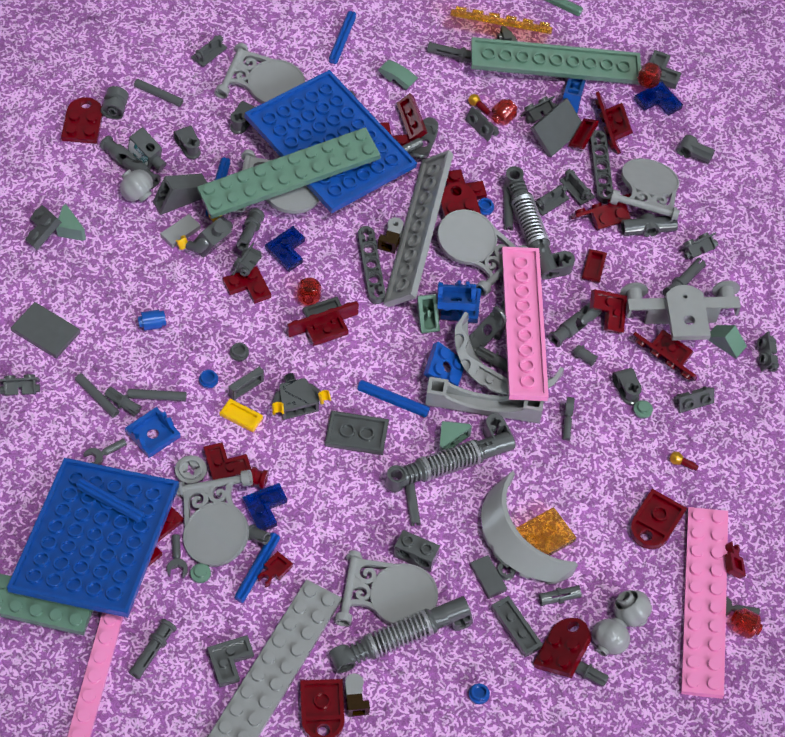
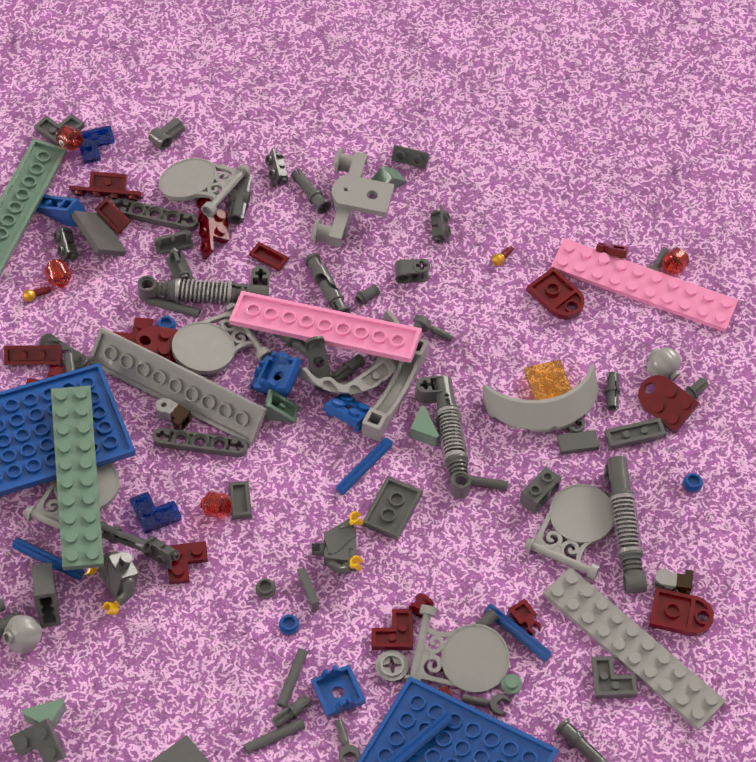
camera: 70 degrees left, 0 degrees up
(152, 320) = (200, 660): blue brick -> none
(186, 226) = (91, 608): light grey tile -> none
(241, 415) = (341, 605): yellow tile -> none
(260, 505) = (451, 613): clear blue plate -> none
(324, 325) = (265, 501): dark red bracket -> none
(481, 124) = (63, 298): dark grey hinge -> none
(613, 305) = (328, 253): dark red plate -> none
(632, 608) = (644, 337): light grey plant -> none
(643, 409) = (439, 268): sand green plate -> none
(673, 352) = (382, 227): dark red bracket -> none

